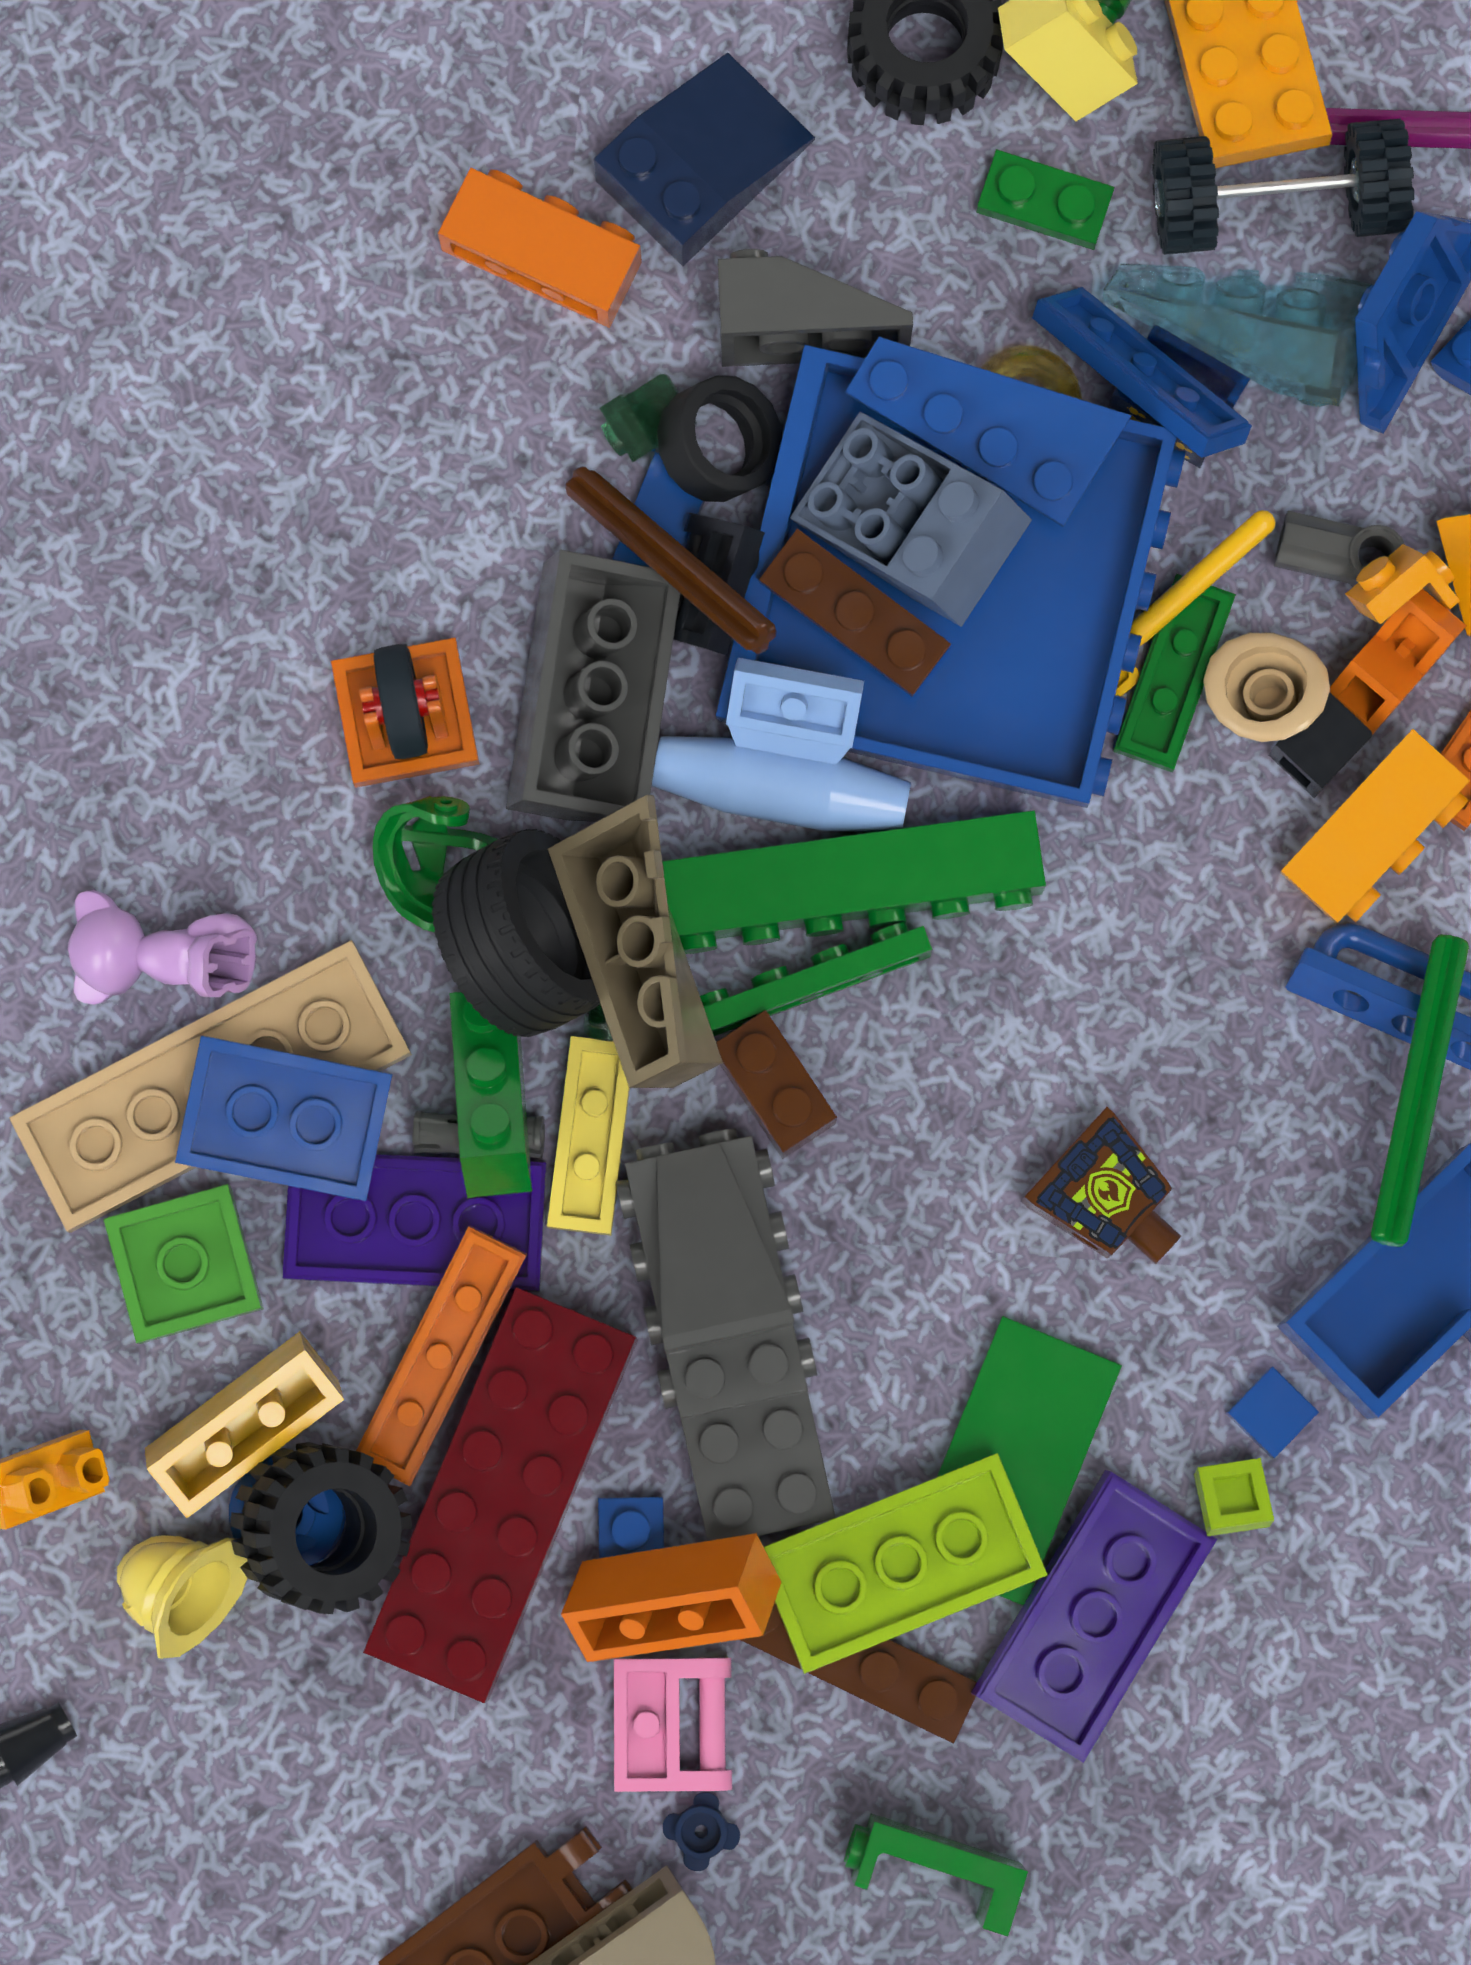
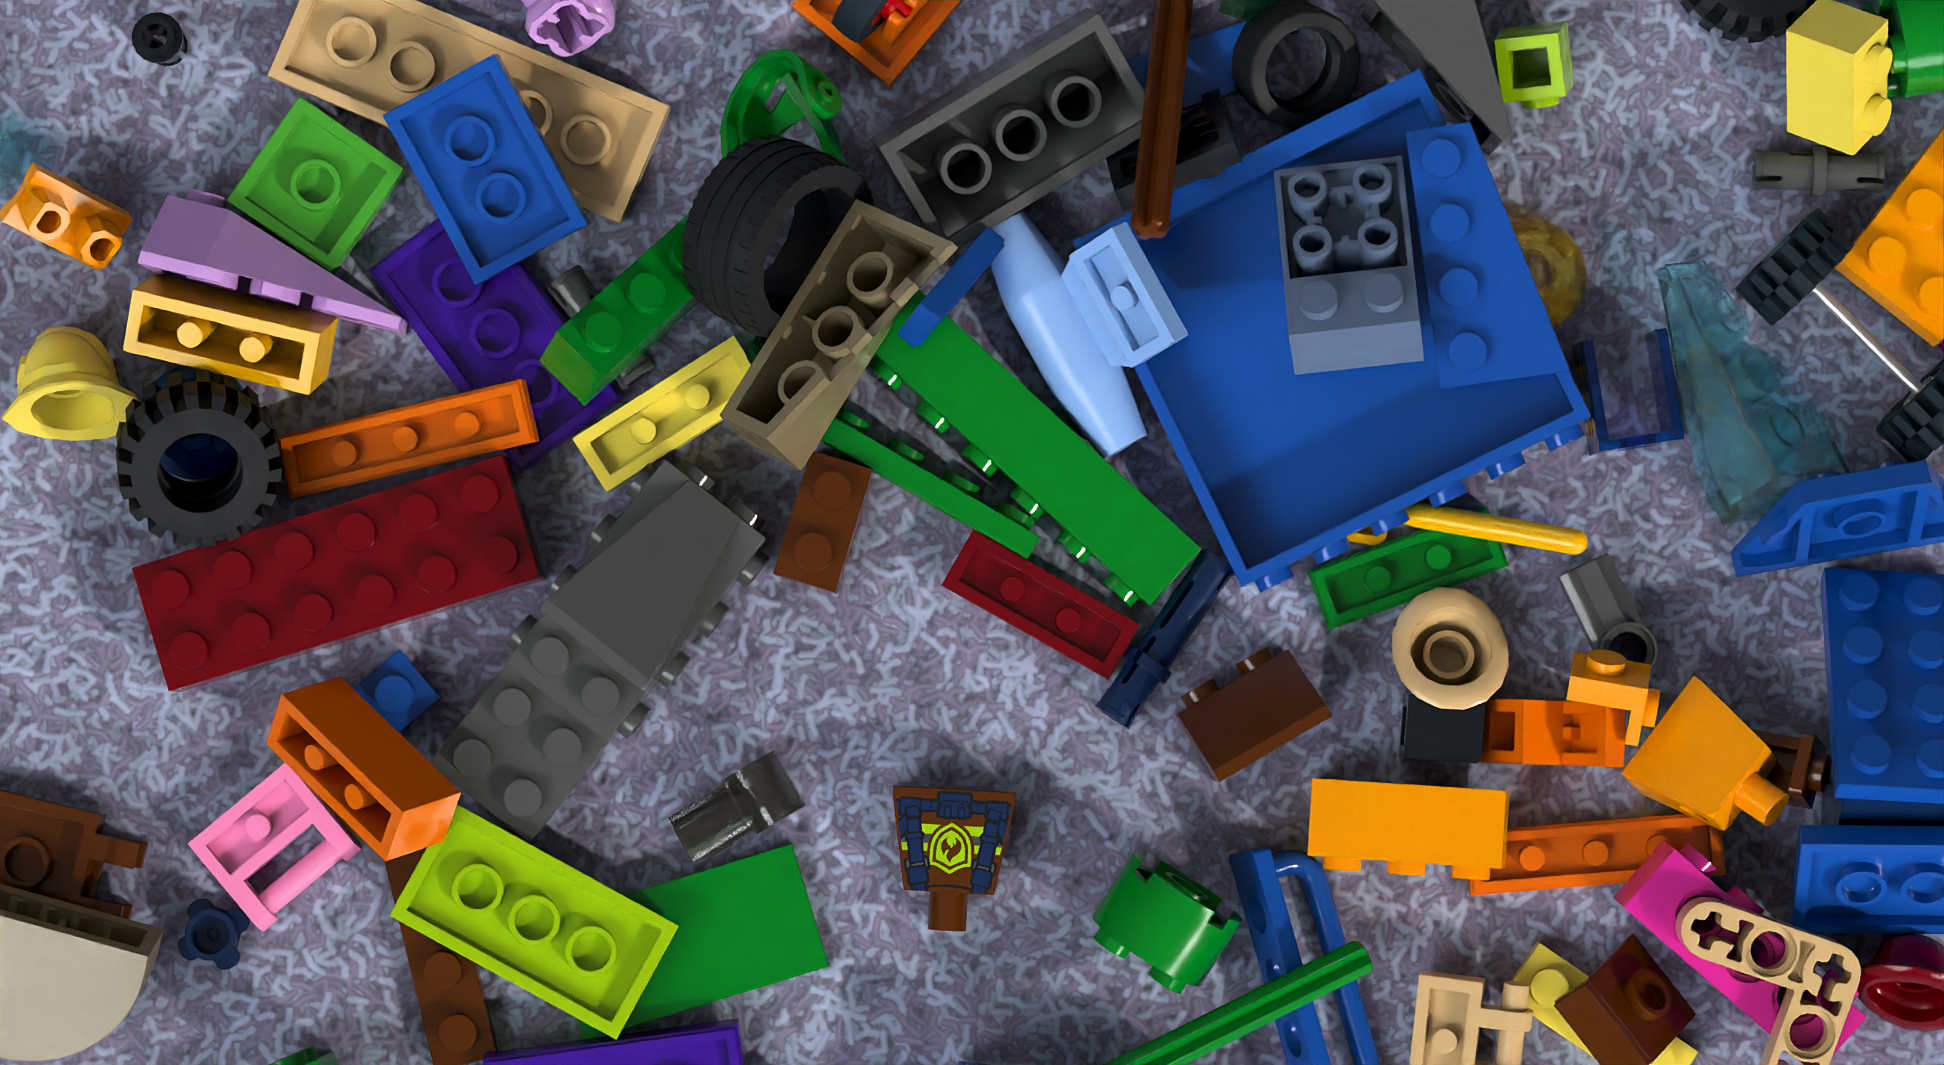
camera: 50 degrees right, 5 degrees up
(176, 1375) = (220, 249): none -> lavender wedge
(676, 833) = (951, 287): none -> blue tile
(854, 612) = (1239, 282): reddish brown plate -> none
(870, 261) = (1534, 64): none -> lime brick
(942, 1322) = (747, 803): none -> clear smoke piece
(974, 972) = (1040, 604): none -> dark red plate
(1045, 199) = (1705, 158): green plate -> none
(1085, 922) = (1165, 638): none -> dark blue pin
(1124, 123) = (1818, 171): none -> dark grey pin
(1142, 372) = (1619, 349): blue tile -> none
(1192, 878) = (1251, 713): none -> reddish brown slope
(1300, 1074) = (1164, 922): none -> green brick

